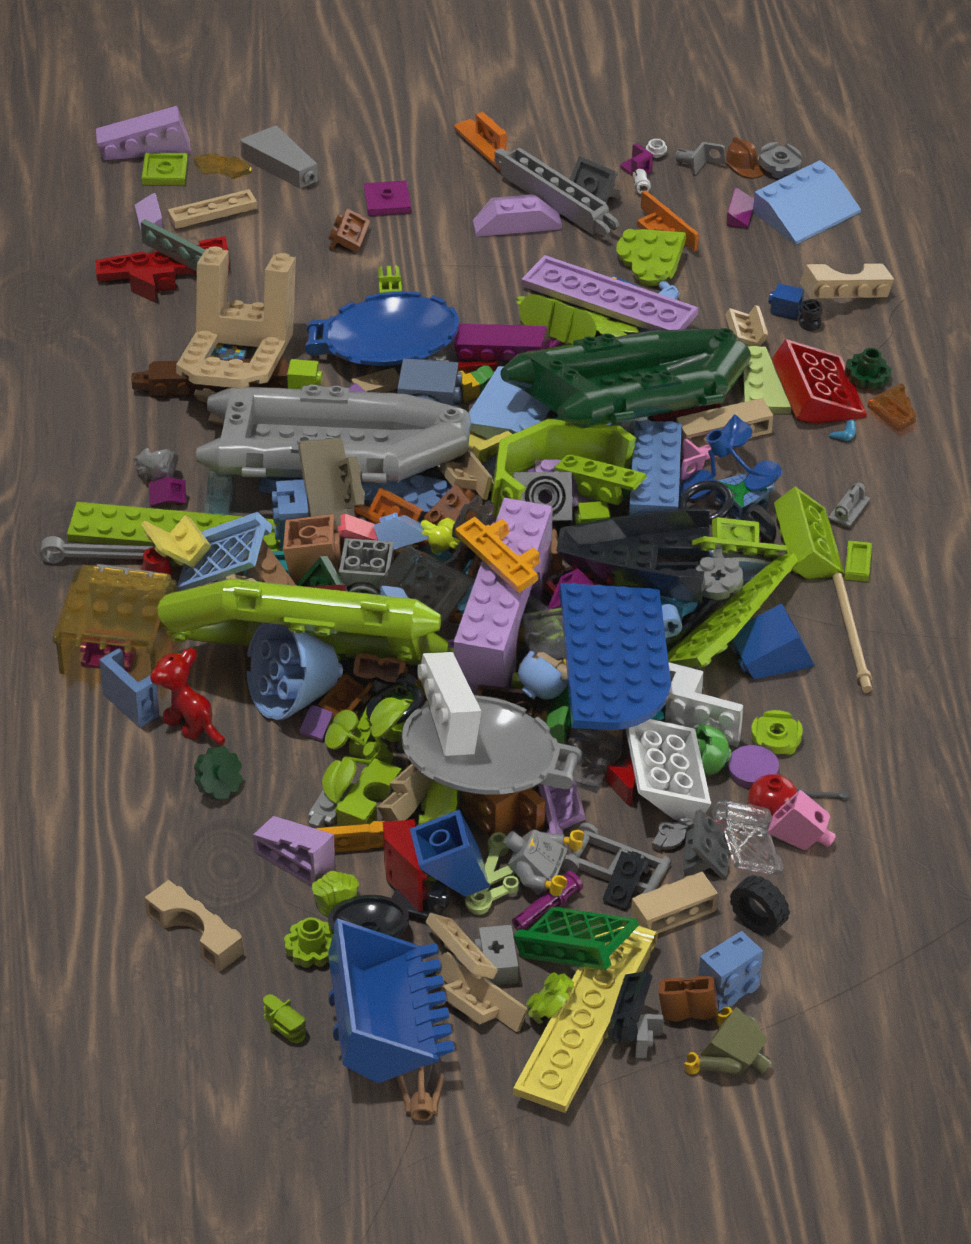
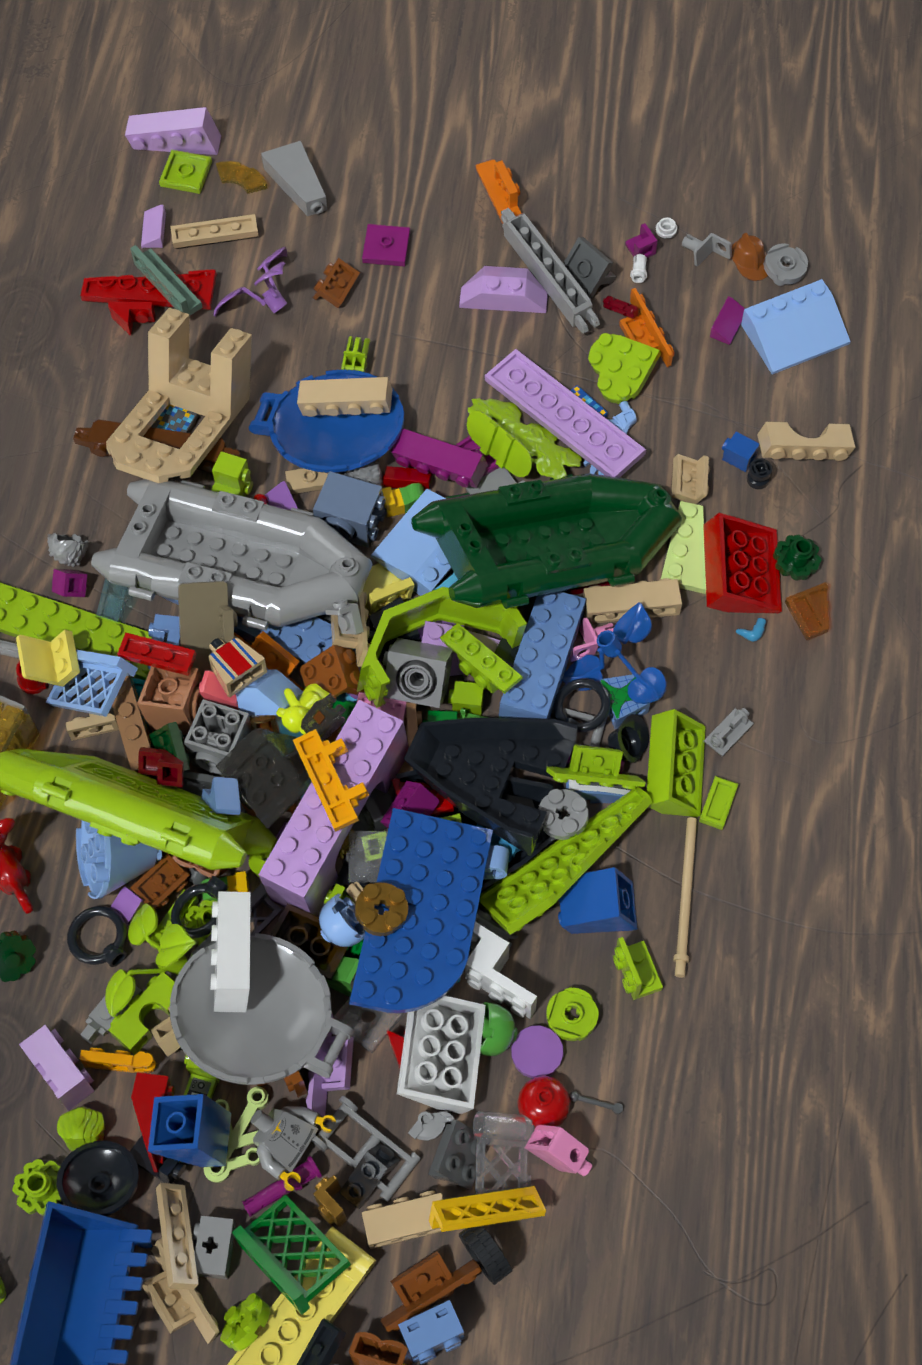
camera: 15 degrees right, 20 degrees up
(282, 224) = (272, 296): none -> medium lavender plant
(291, 505) = (157, 654): none -> red plate
(316, 760) = (114, 952): none -> black piece
(371, 501) = (235, 664): none -> tan torso
(394, 307) = (345, 396): none -> tan brick
(464, 455) = (348, 616): none -> light grey bracket
(569, 641) = (378, 894): none -> pearl gold plate
(599, 894) = (327, 1205): none -> pearl gold bracket
(634, 210) = (620, 307): none -> dark red axle
(705, 940) = (424, 1285): none -> dark orange bracket
(729, 874) = (486, 1209): none -> yellow fence
(823, 687) = (638, 969): none -> lime bracket

